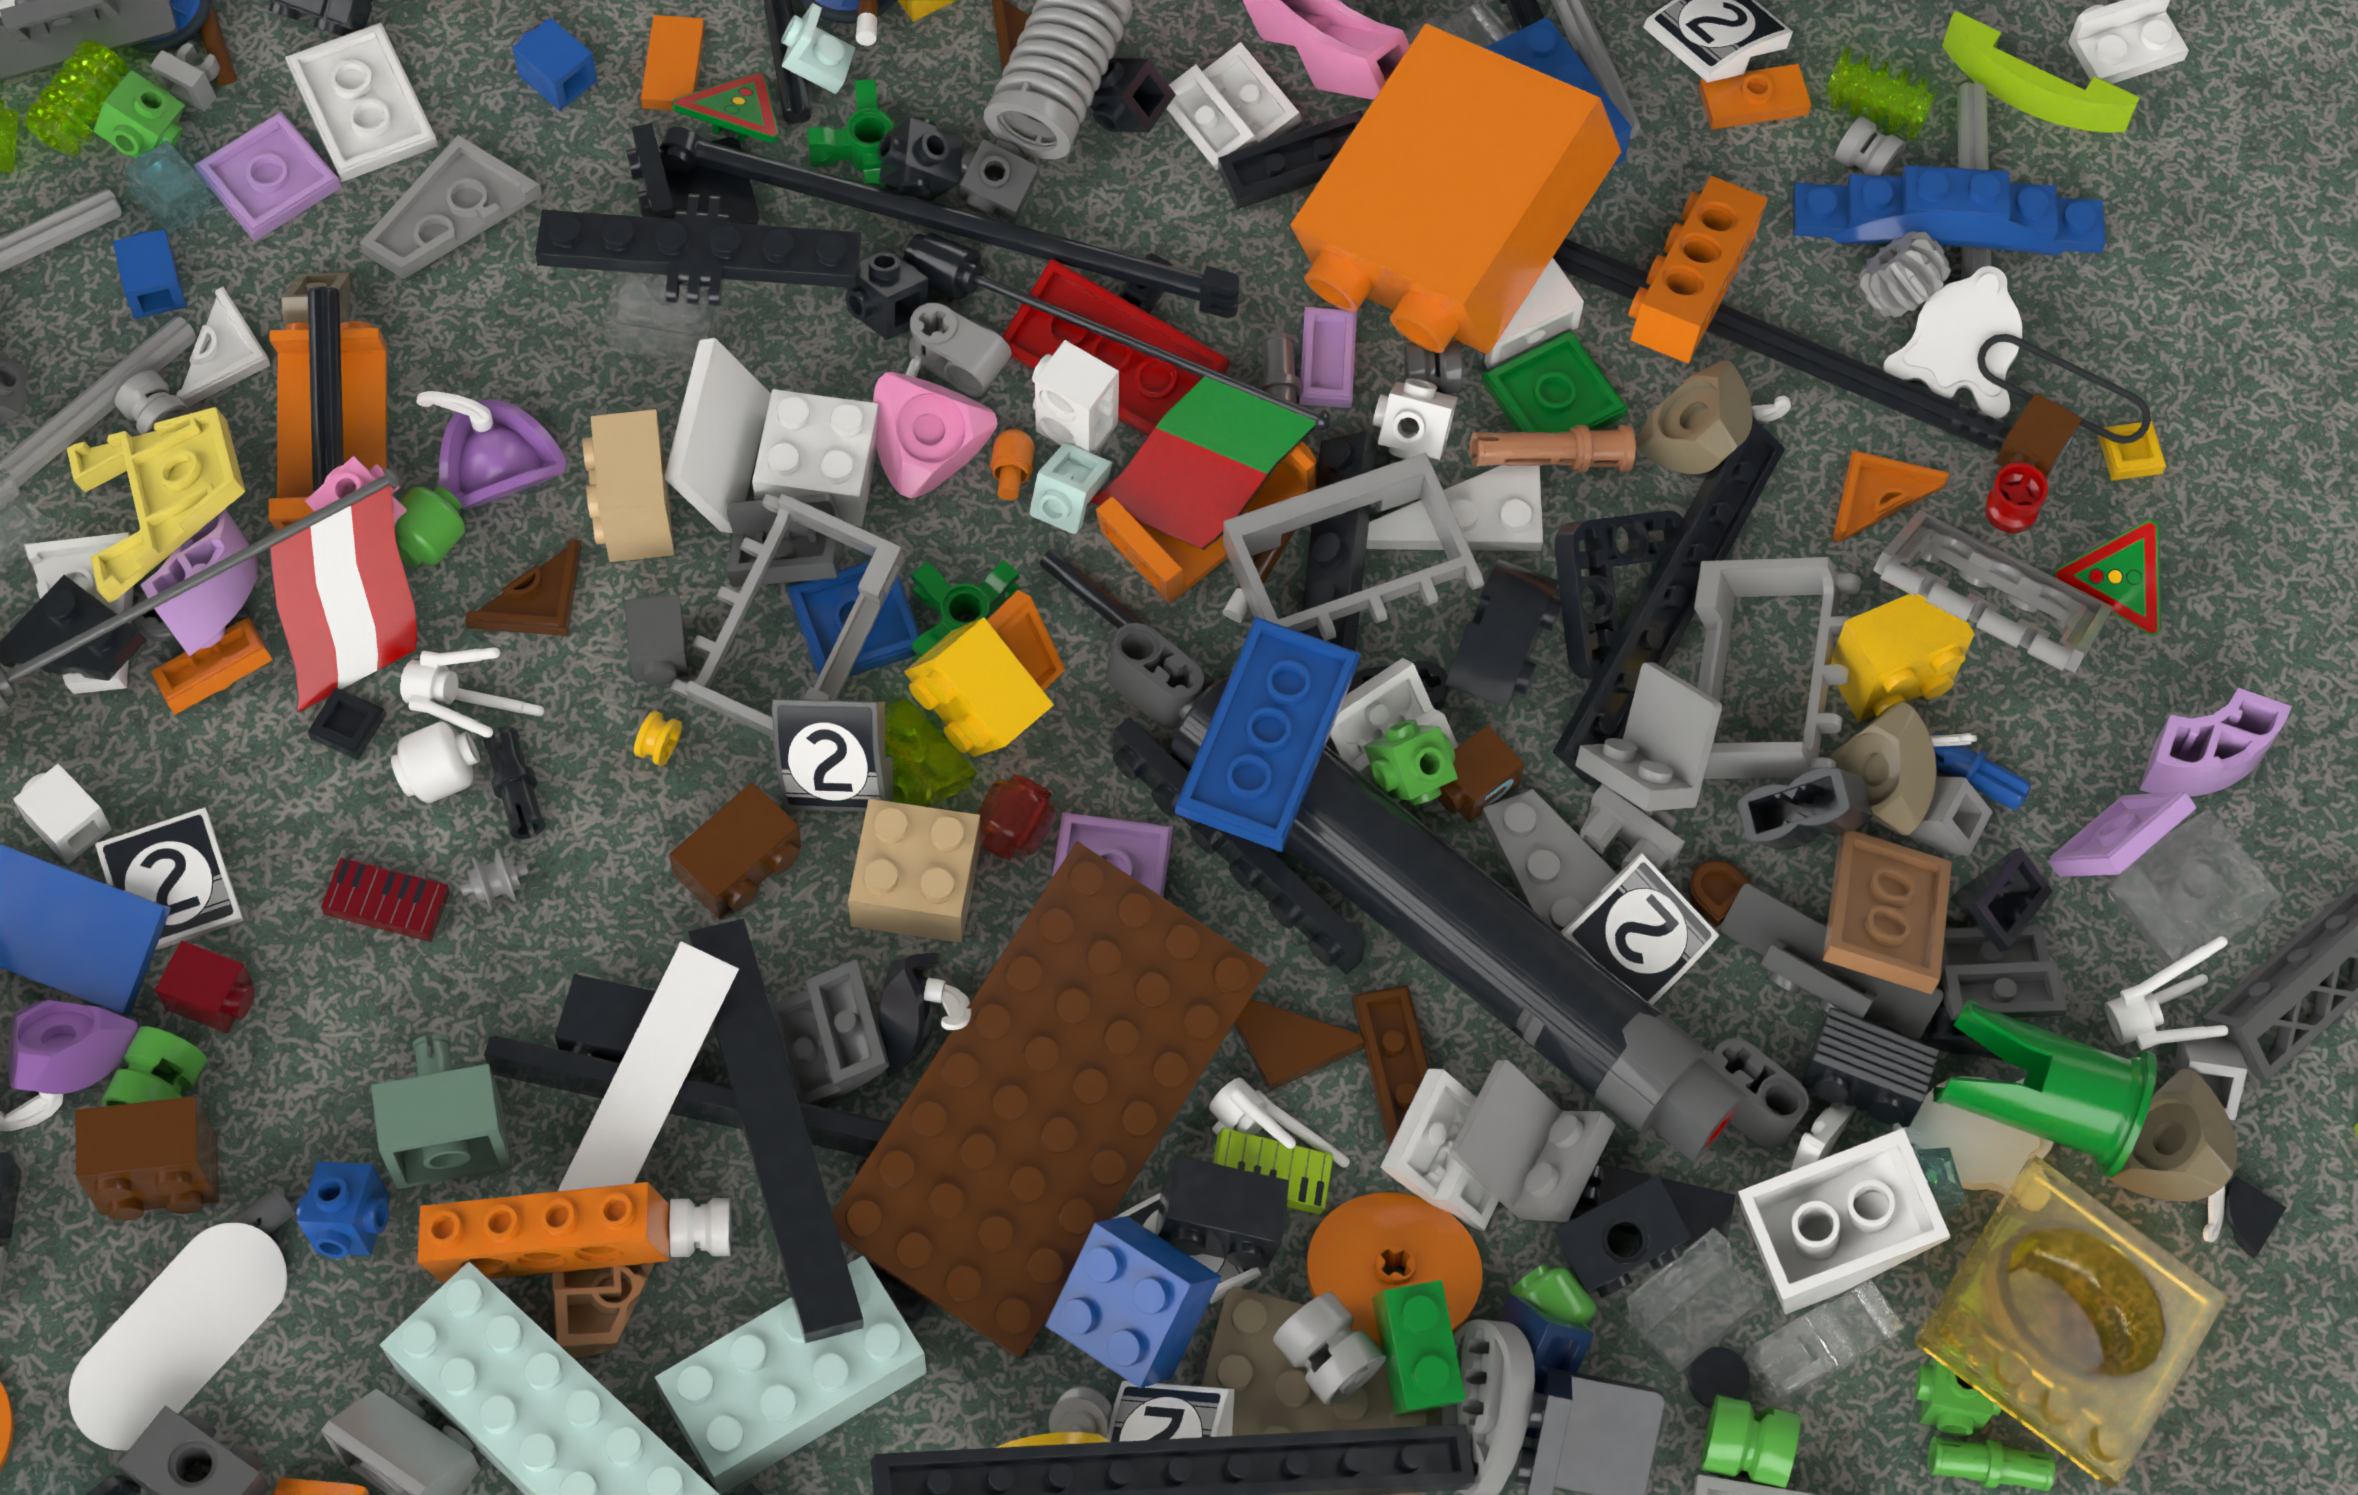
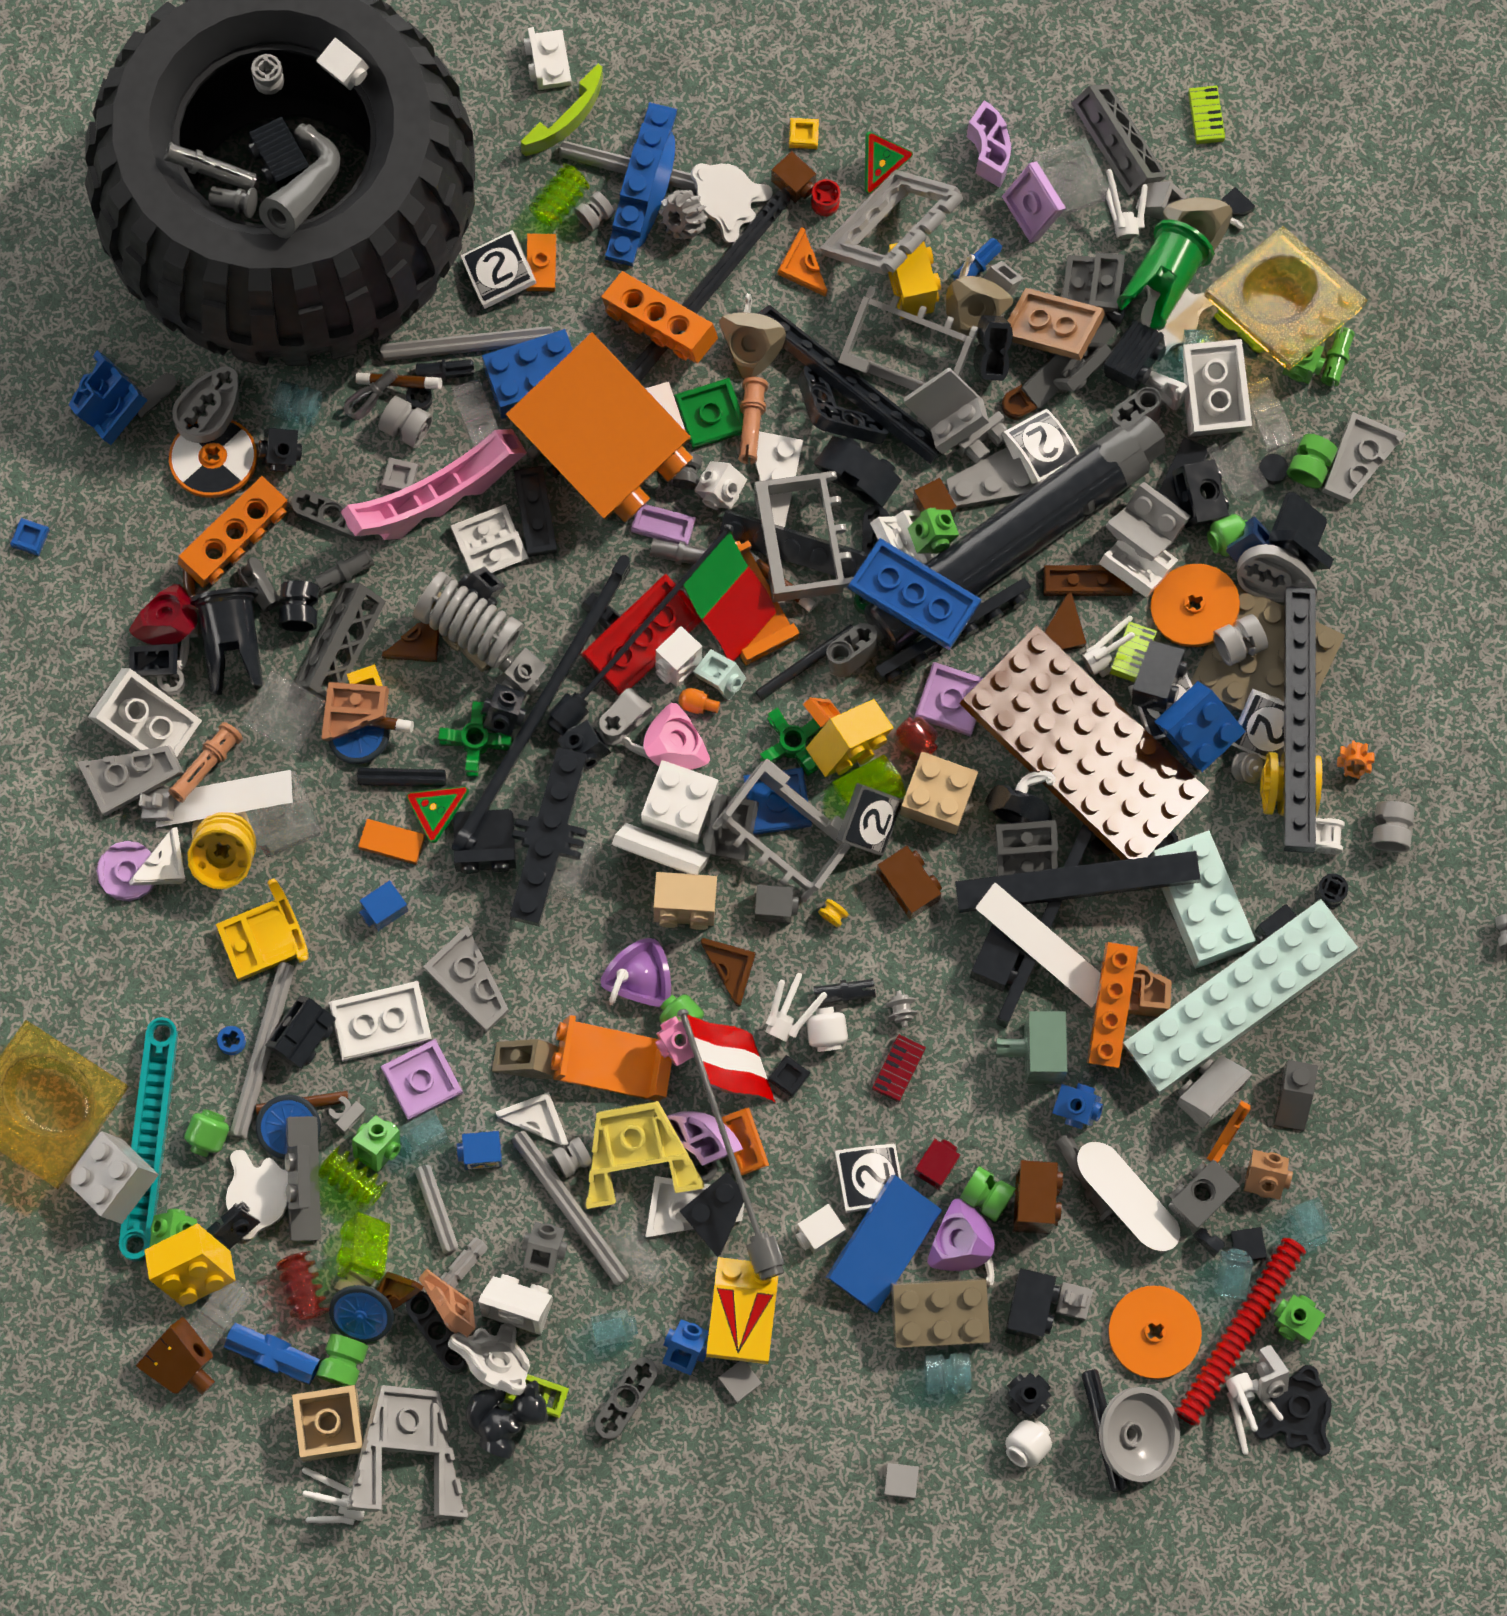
camera: 80 degrees left, 10 degrees up
(325, 382) = (601, 1051): black axle -> none
(700, 1227) = (1115, 929): white wheel -> none
(815, 52) = (409, 757): light aqua bracket -> none
(1418, 1347) = (1249, 595): green brick -> none
(2004, 898) = (1051, 269): black slope -> none
(2074, 369) = (735, 175): black piece -> none

